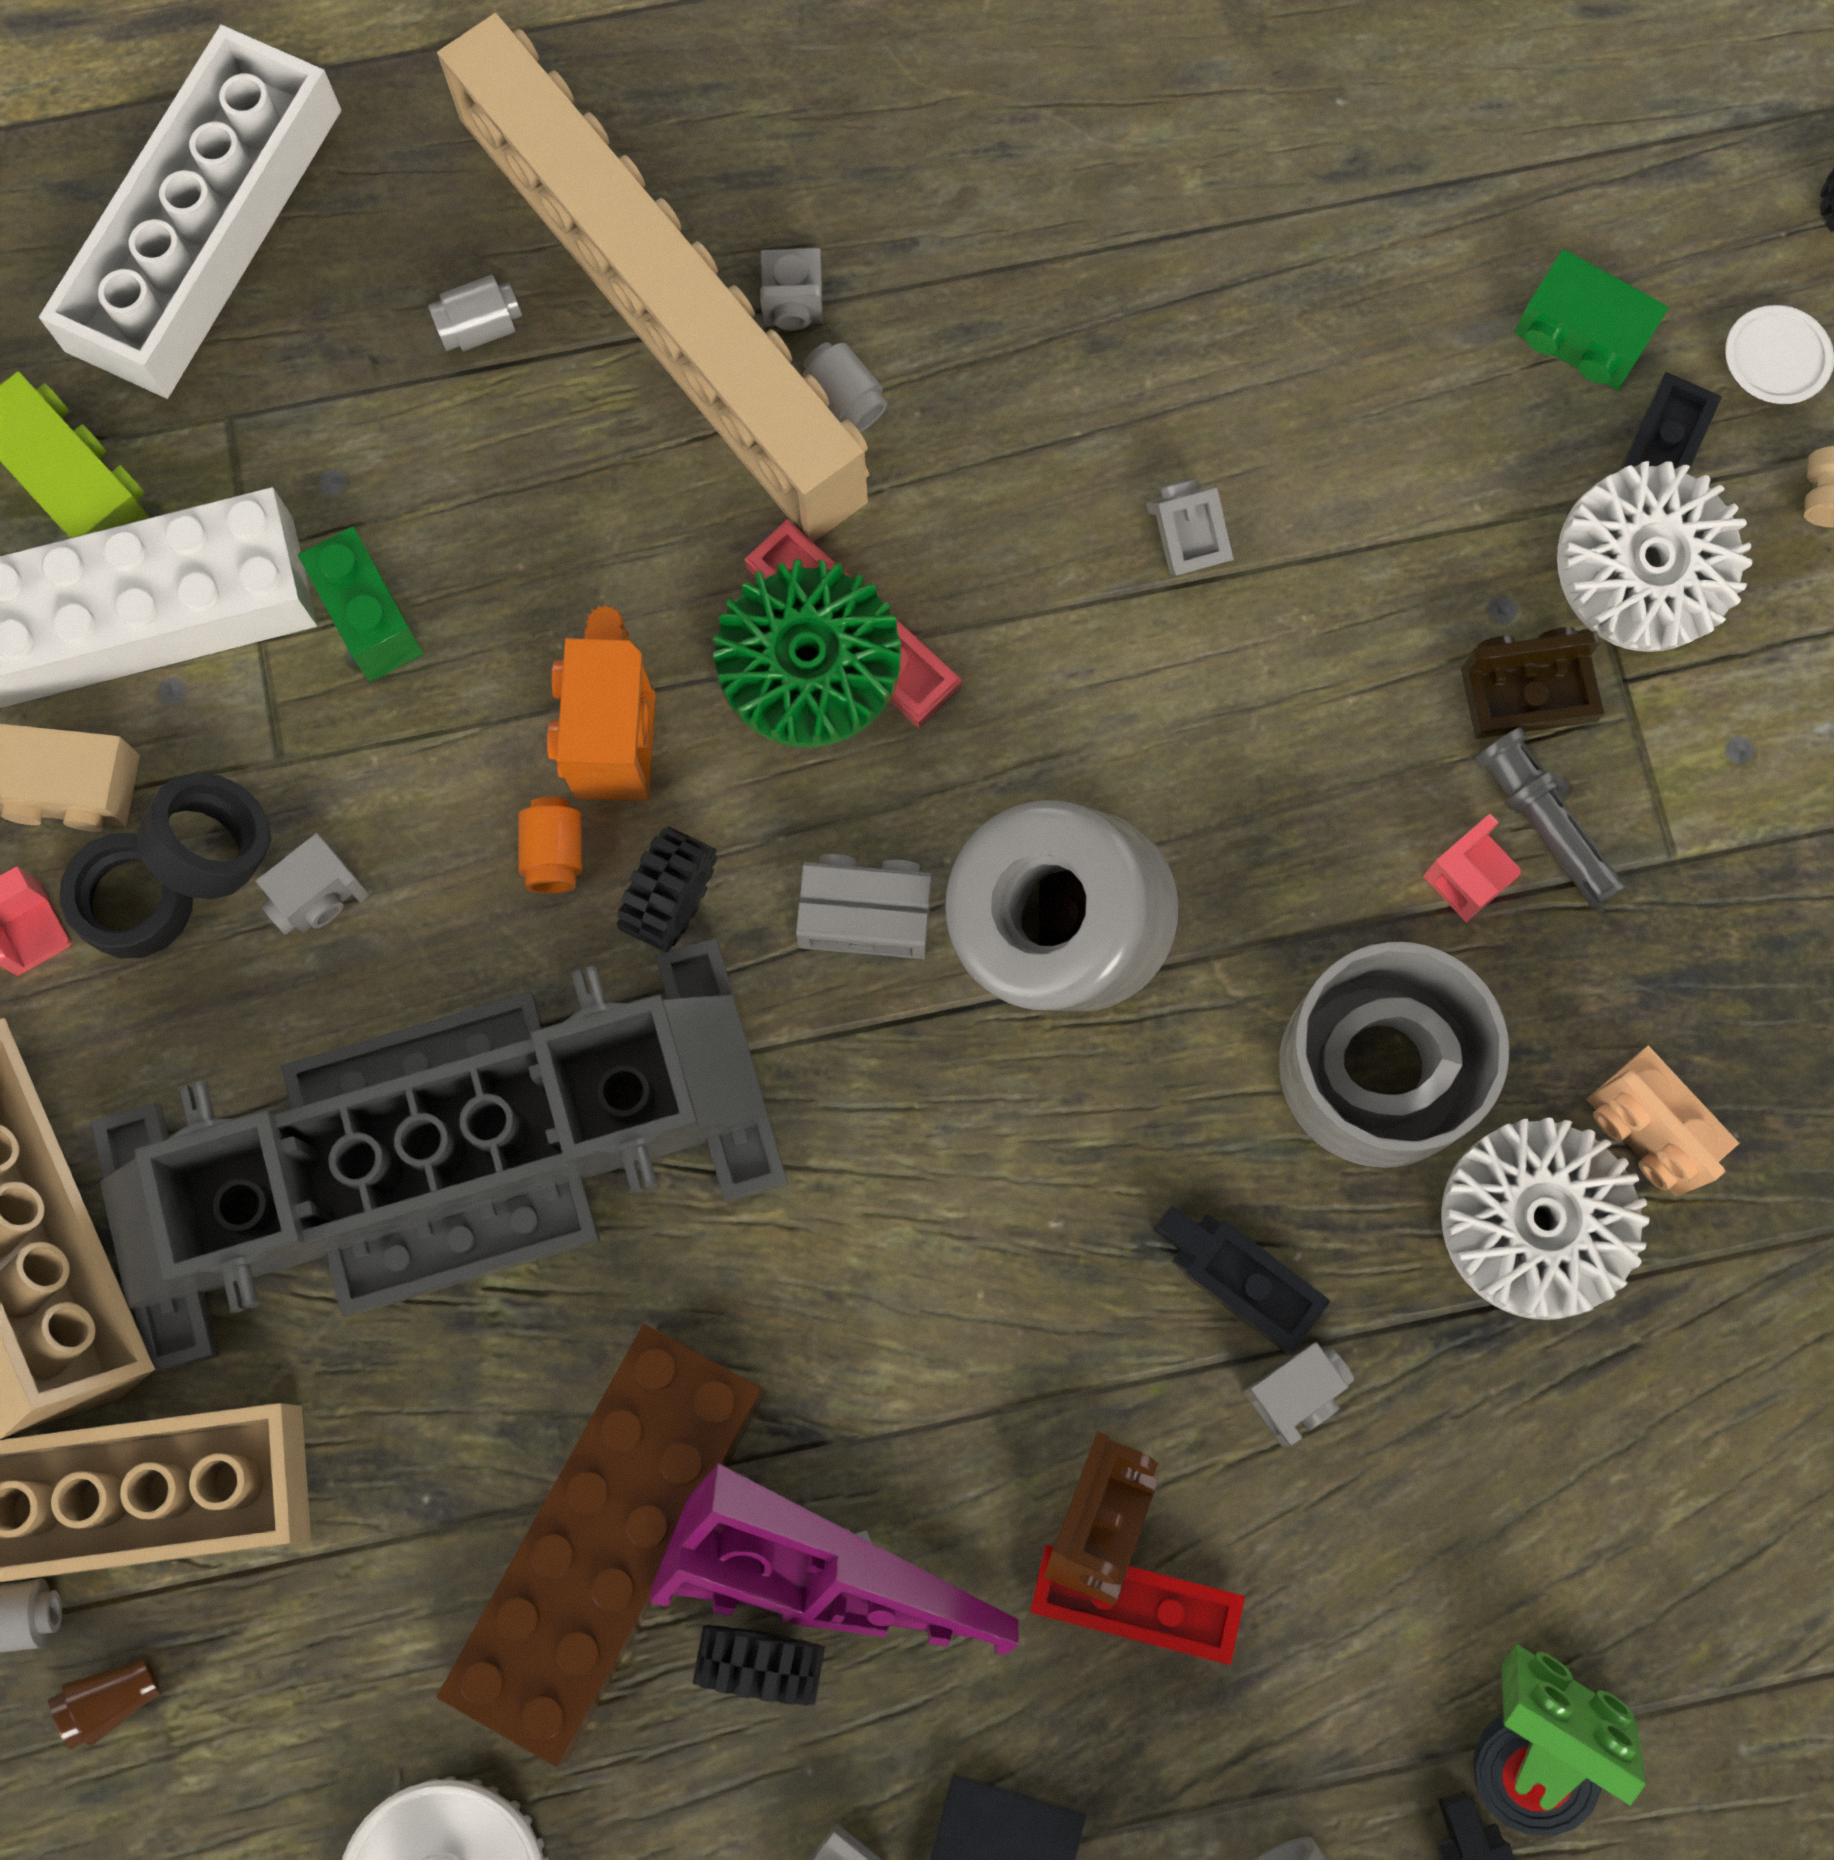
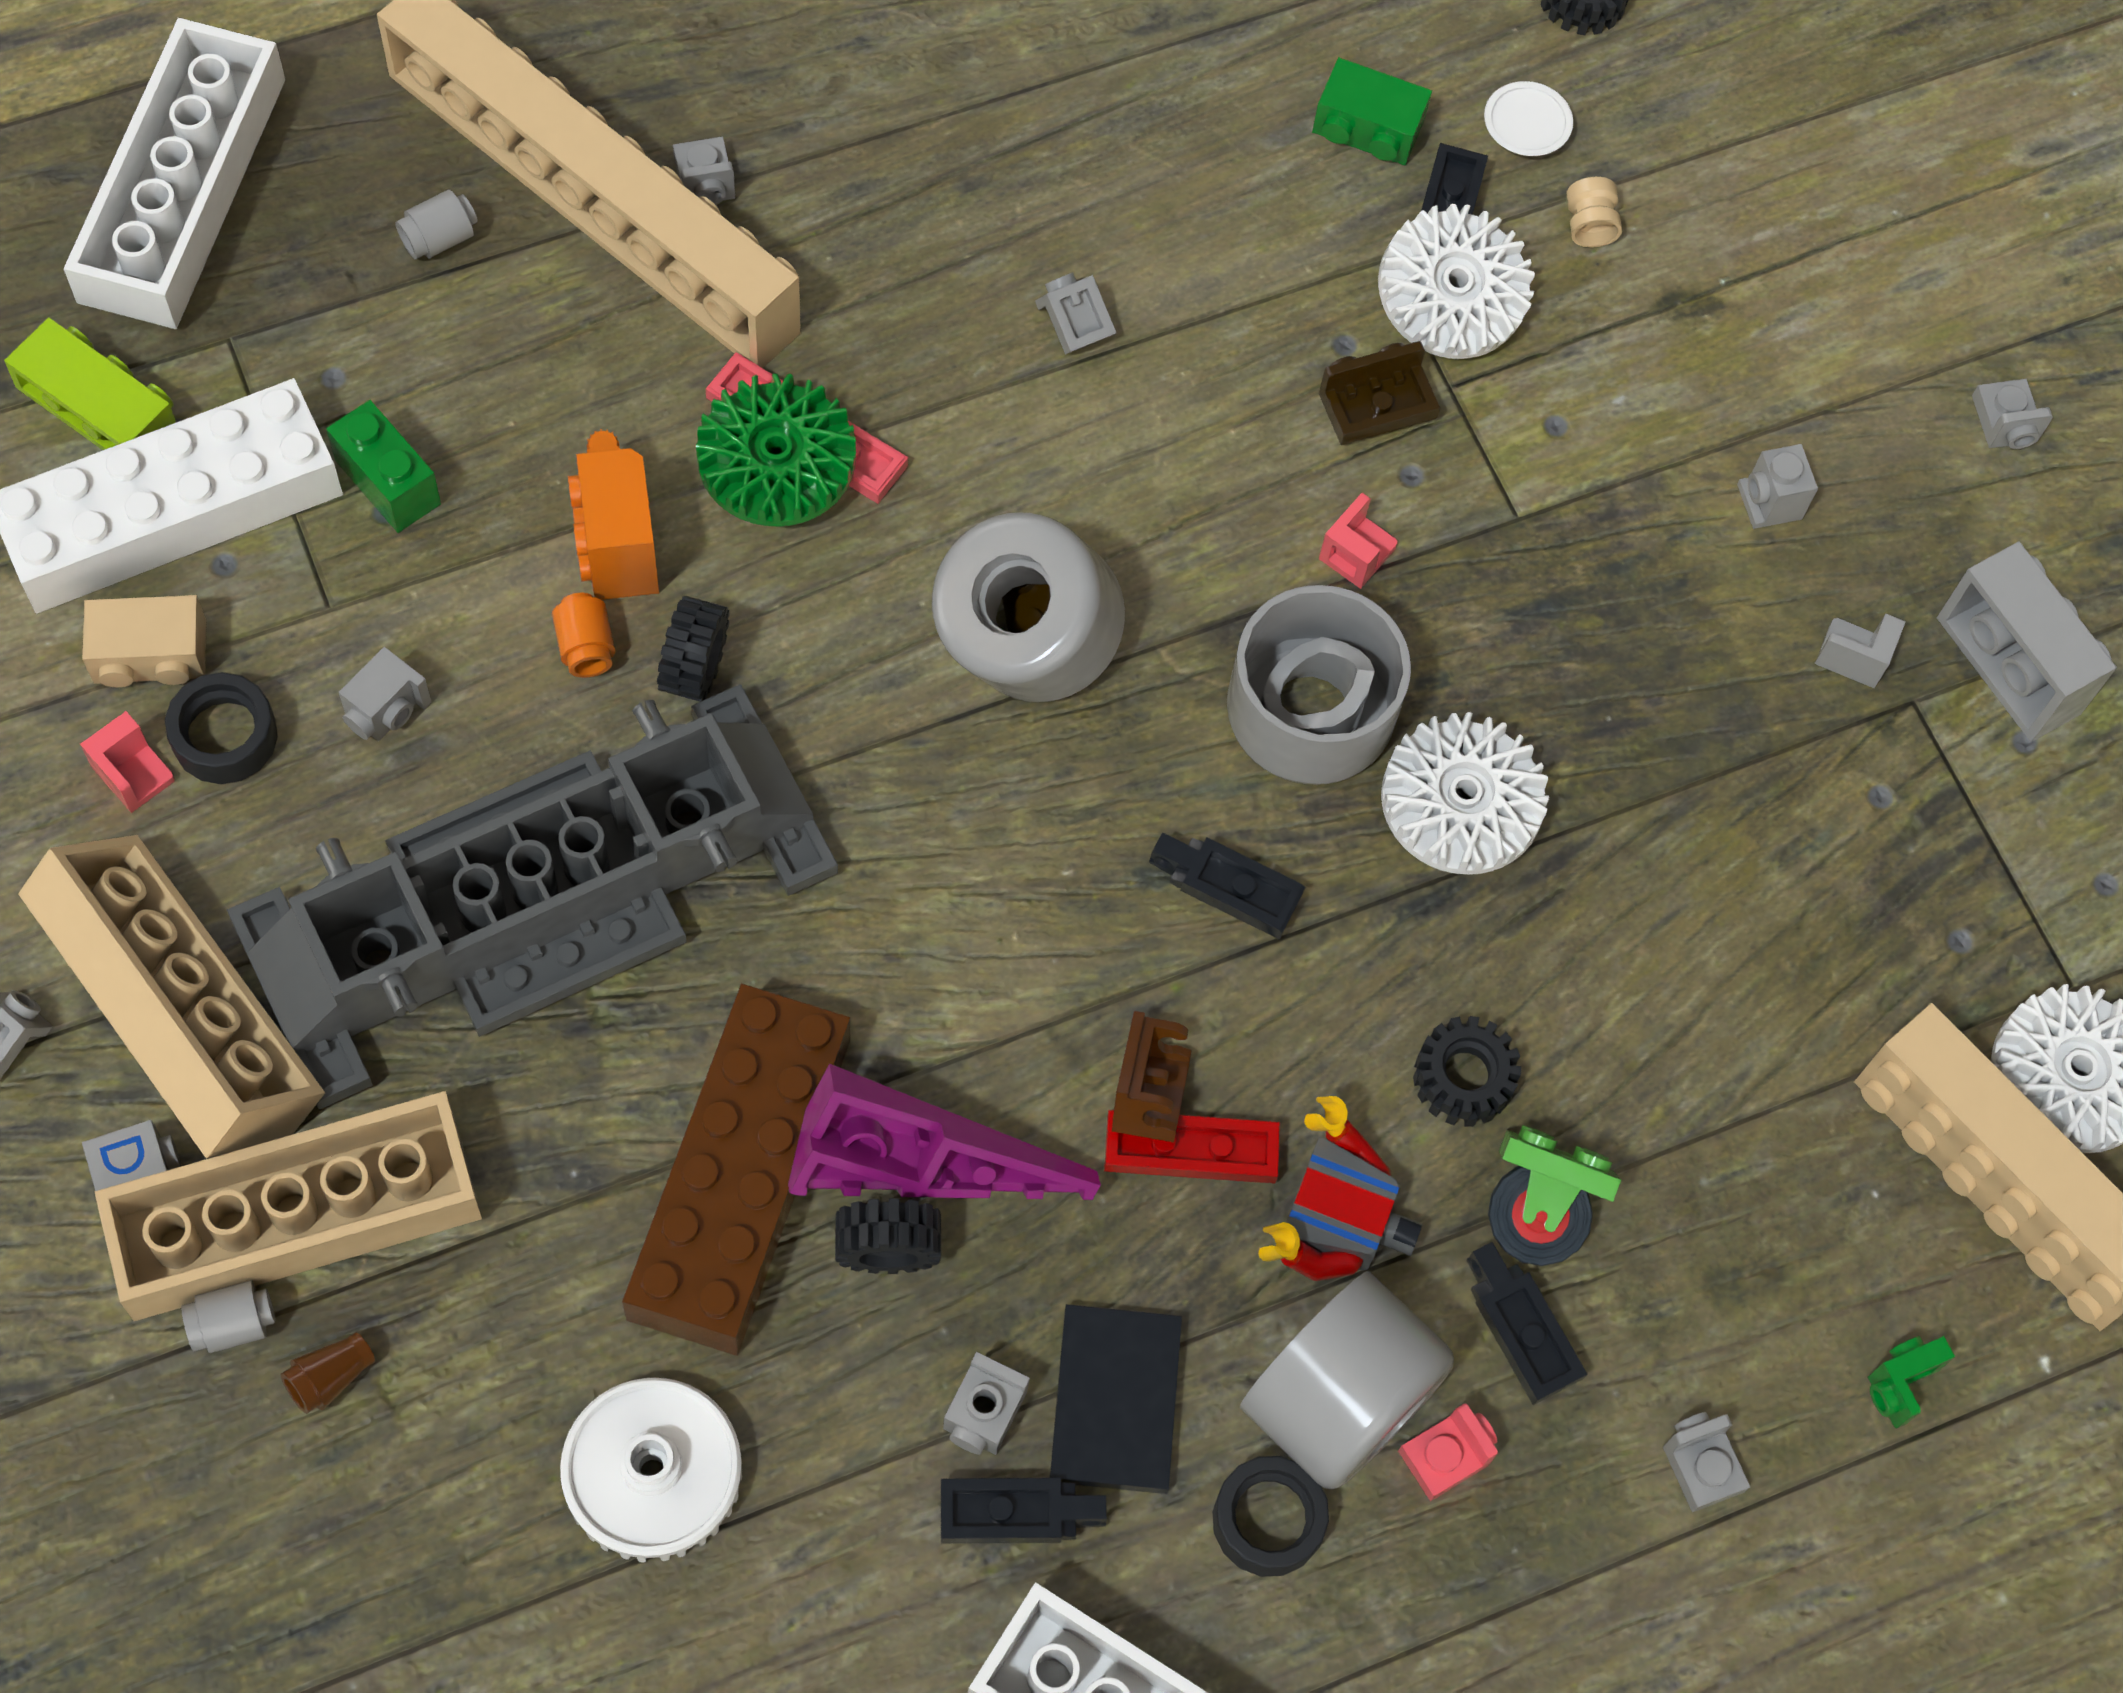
camera: 20 degrees left, 10 degrees down
(219, 800) = (270, 684): black tyre -> none
(847, 383) = (770, 233): light grey brick -> none
(864, 907) = (862, 644): light grey brick -> none
(1297, 1719) = (1340, 1205): none -> torso
(1300, 1392) = (1292, 961): light grey brick -> none
(1523, 1561) = (1478, 1041): none -> black tyre
(1534, 793) = (1395, 478): dark grey pin -> none
(1662, 1124) = (1544, 712): light nougat bracket -> none

